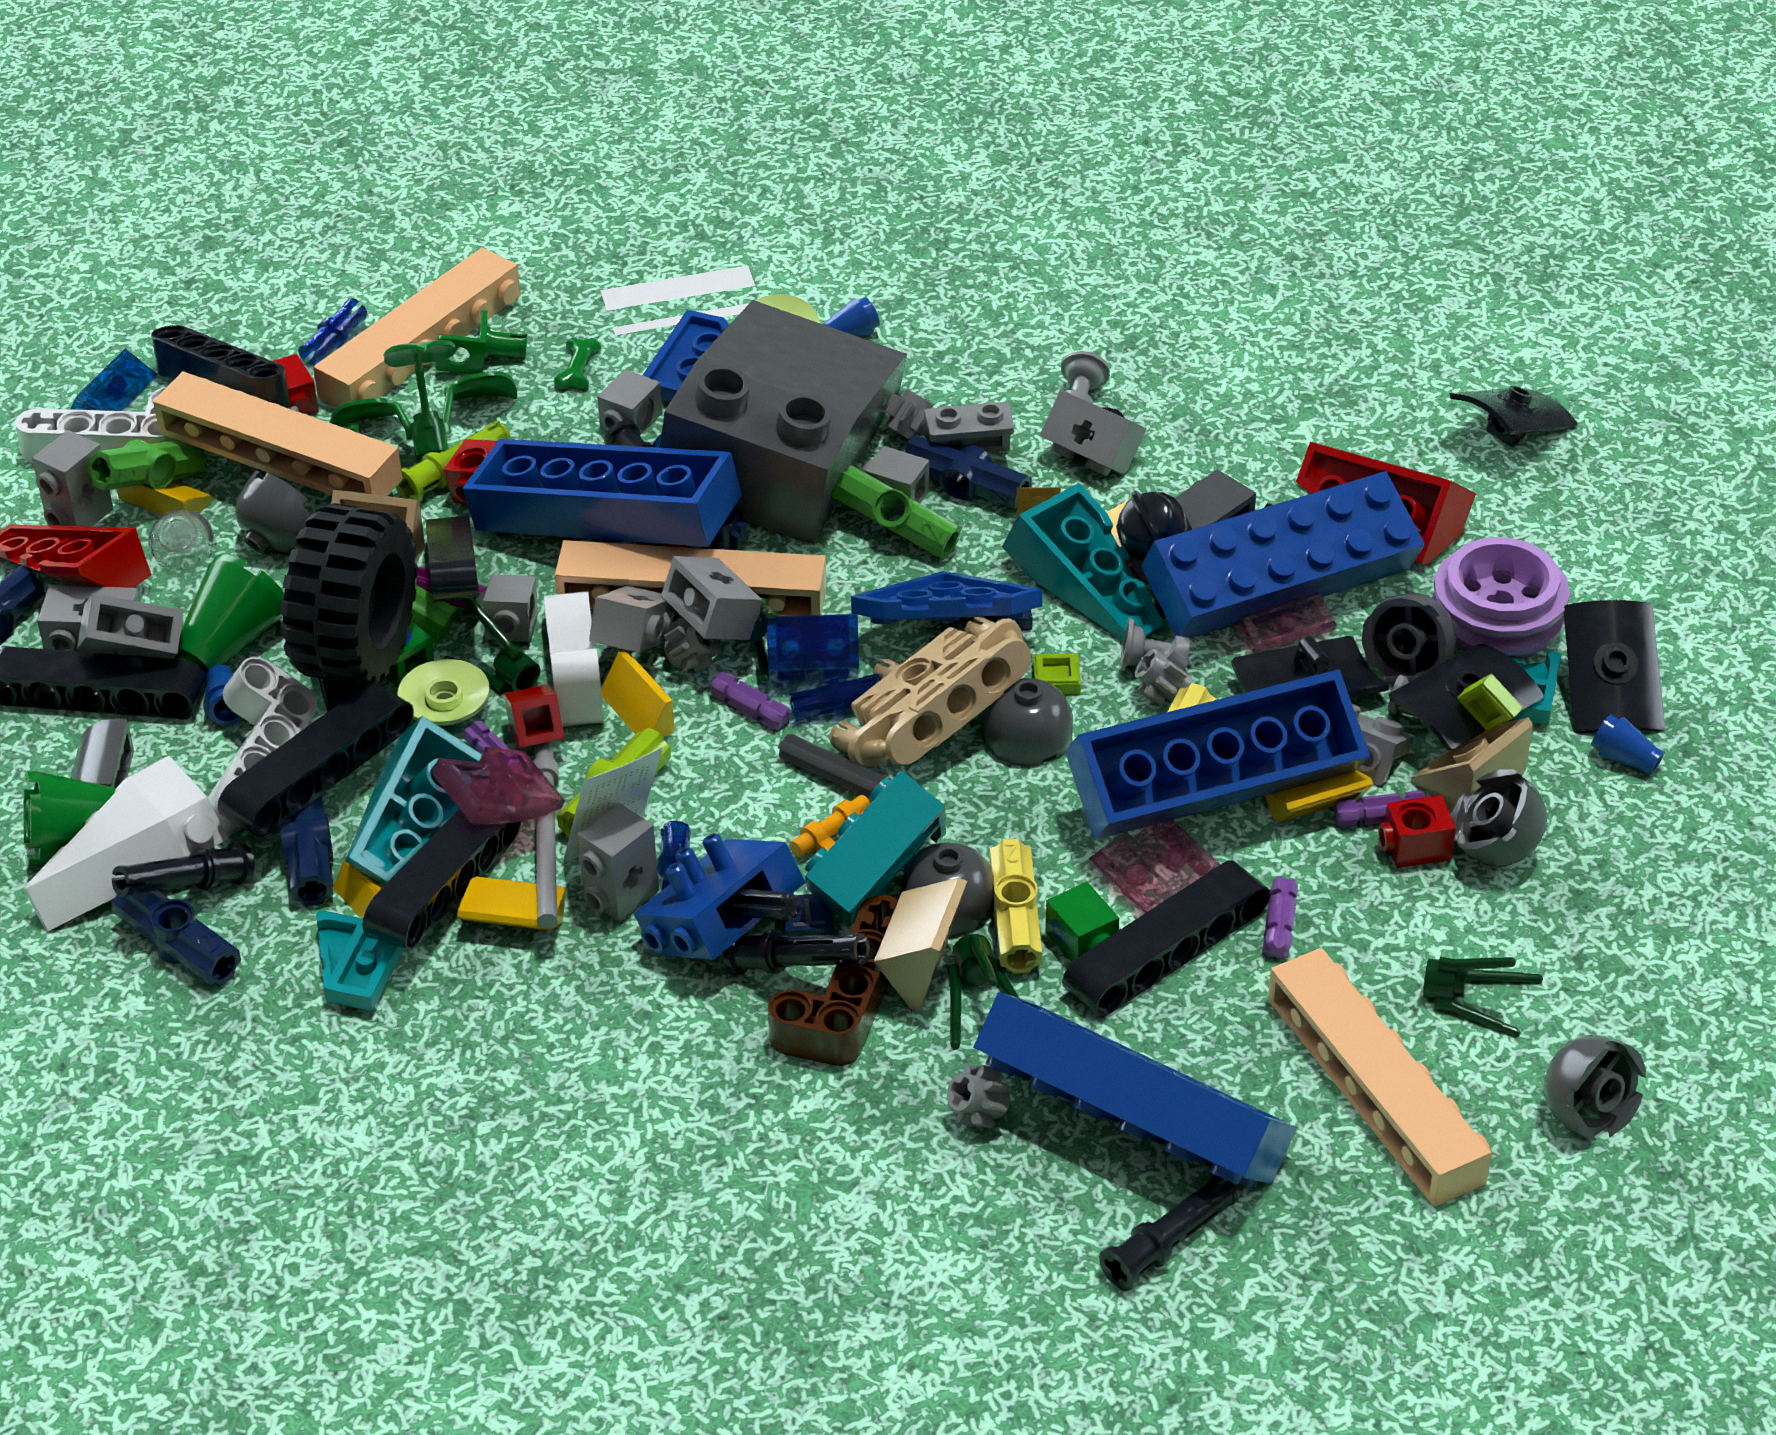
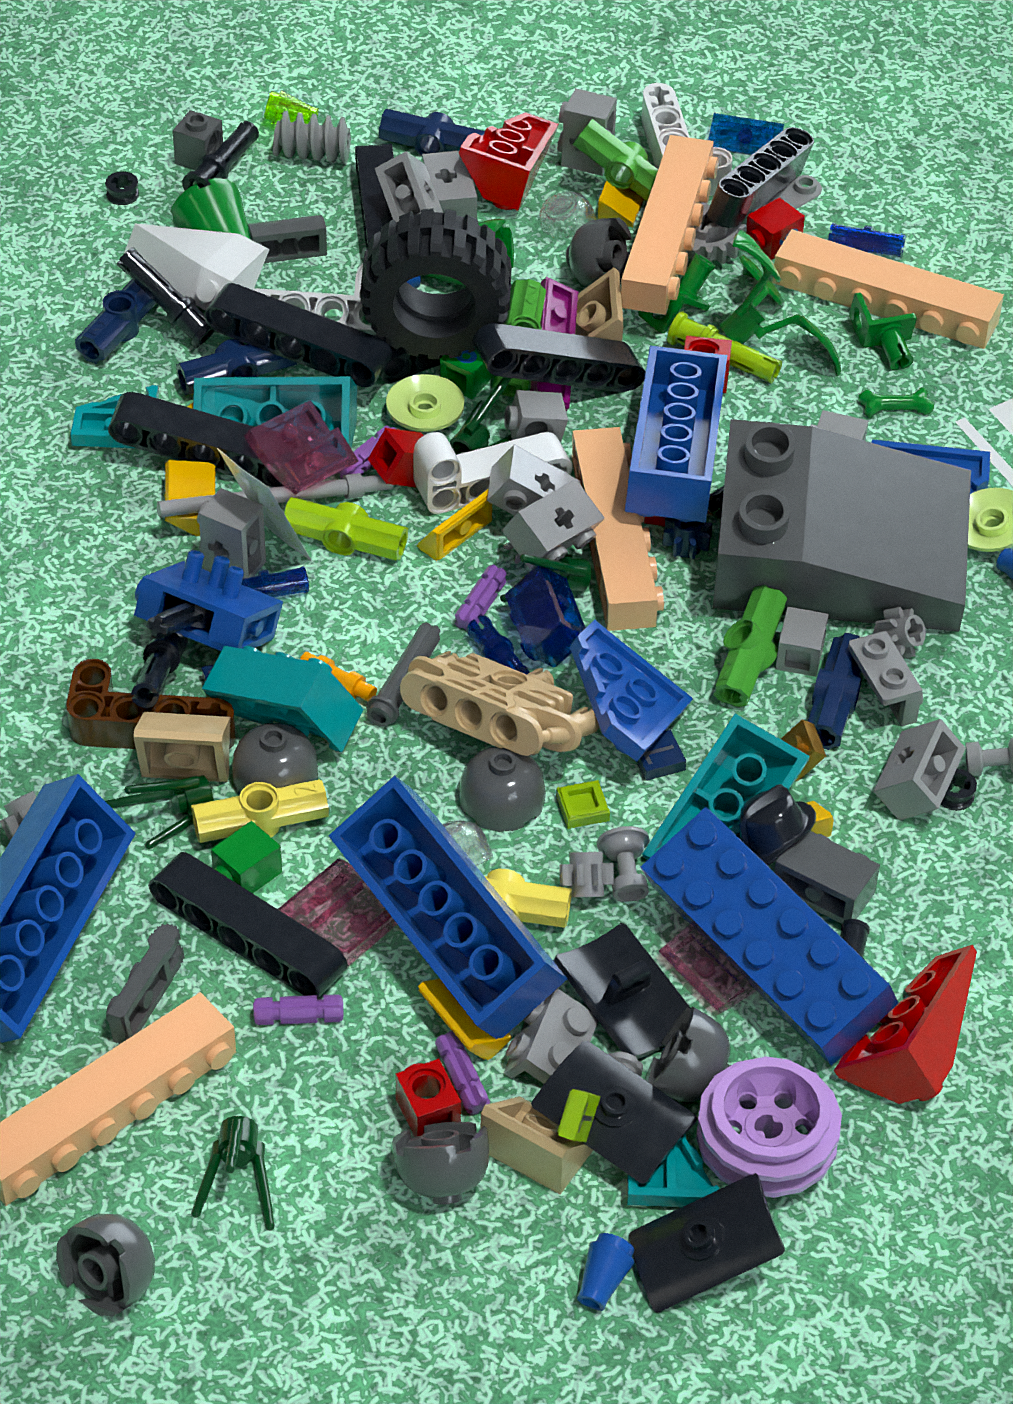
camera: 75 degrees right, 5 degrees up
(1232, 1023) = (146, 984): none -> dark grey hinge

